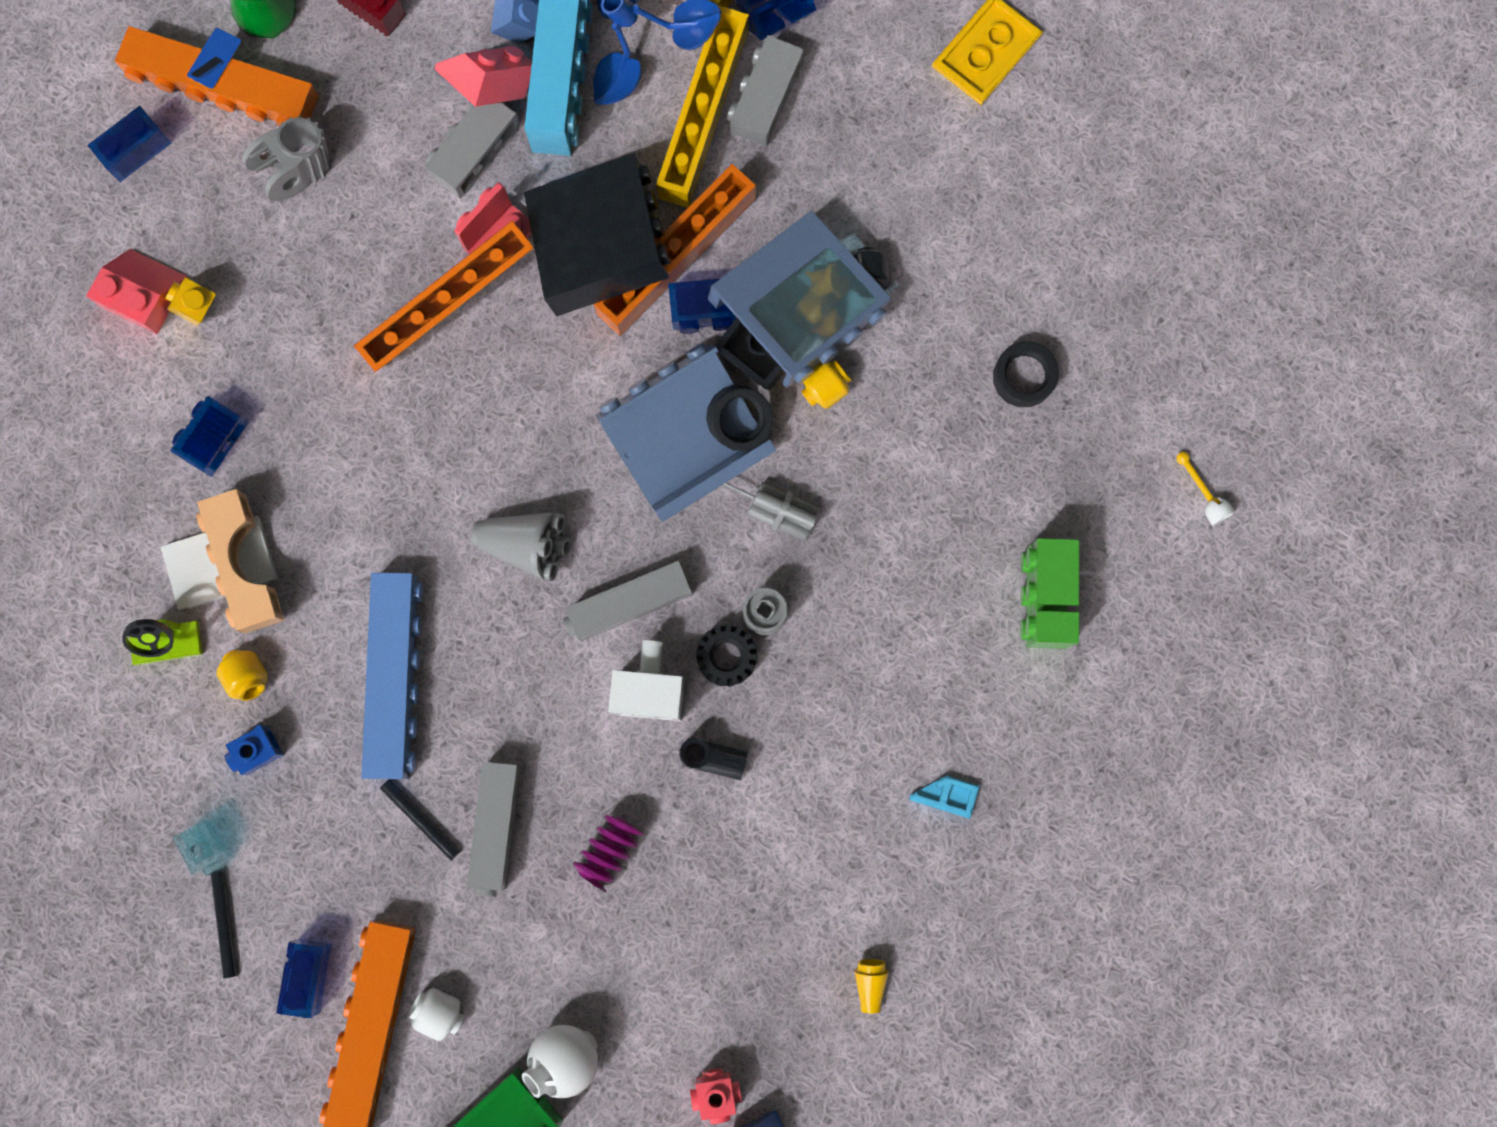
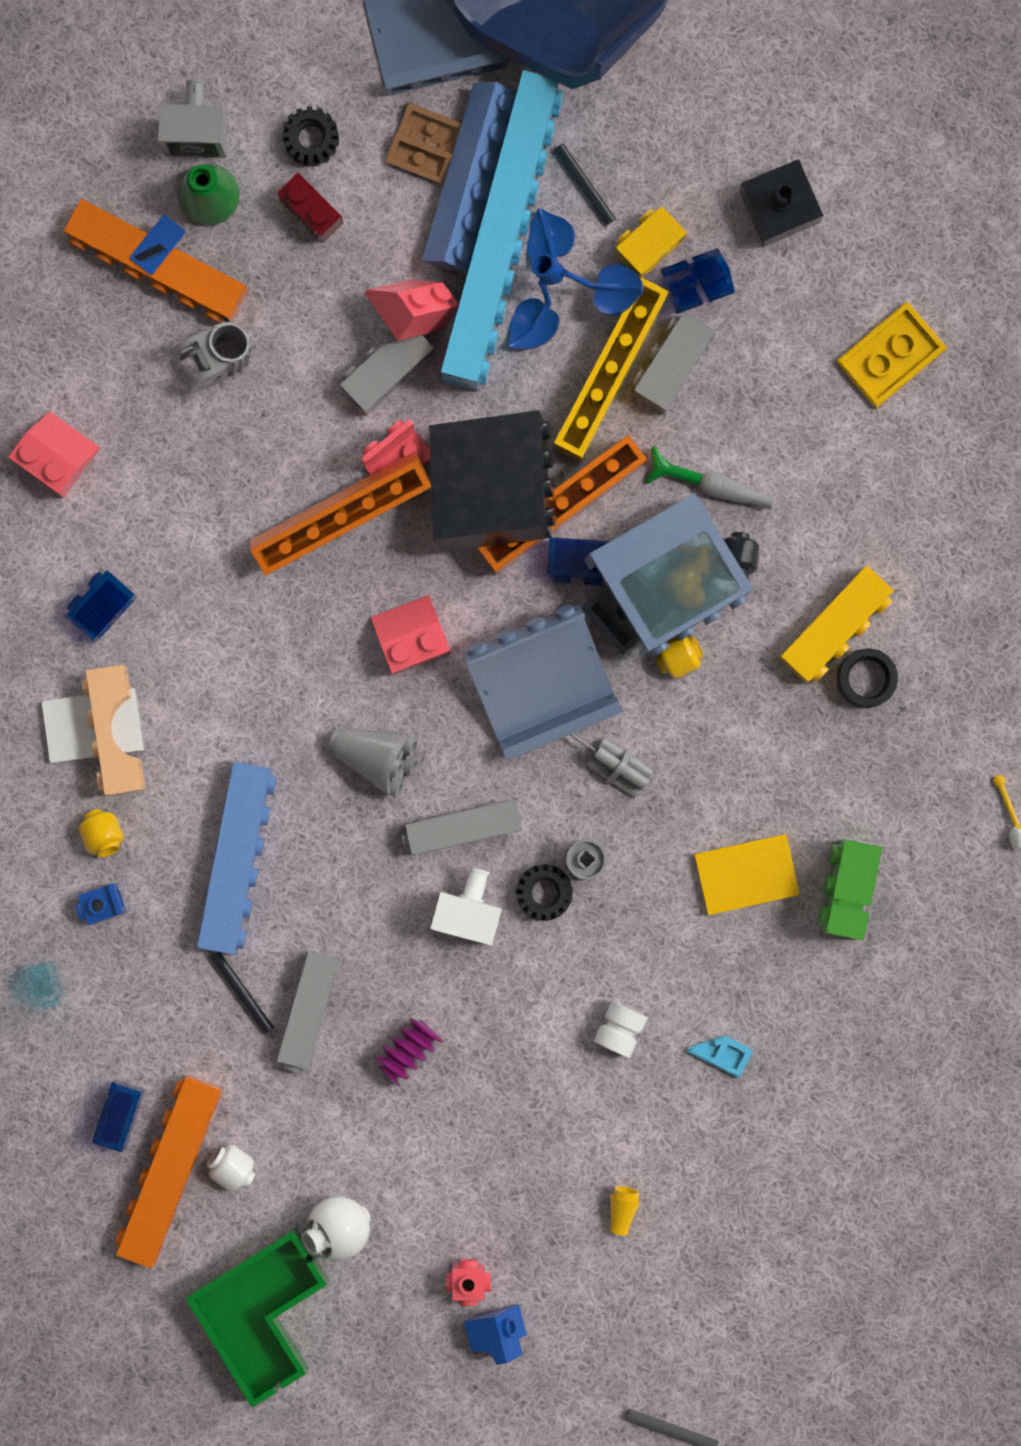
camera: 10 degrees right, 5 degrees up
(129, 144) = (65, 312): clear blue brick -> none
(161, 640) = (33, 790): piece -> none
(189, 300) = (102, 475): yellow brick -> none
(223, 925) = (51, 1056): black bar -> none
(541, 412) = (410, 635): none -> coral slope
(717, 759) = (519, 984): black piece -> none
(762, 429) = (606, 695): black tyre -> none
(825, 205) = (710, 482): none -> light grey piece
(833, 787) = (620, 1029): none -> white wheel
(937, 600) = (747, 874): none -> yellow tile
(983, 324) = (836, 624): none -> yellow brick

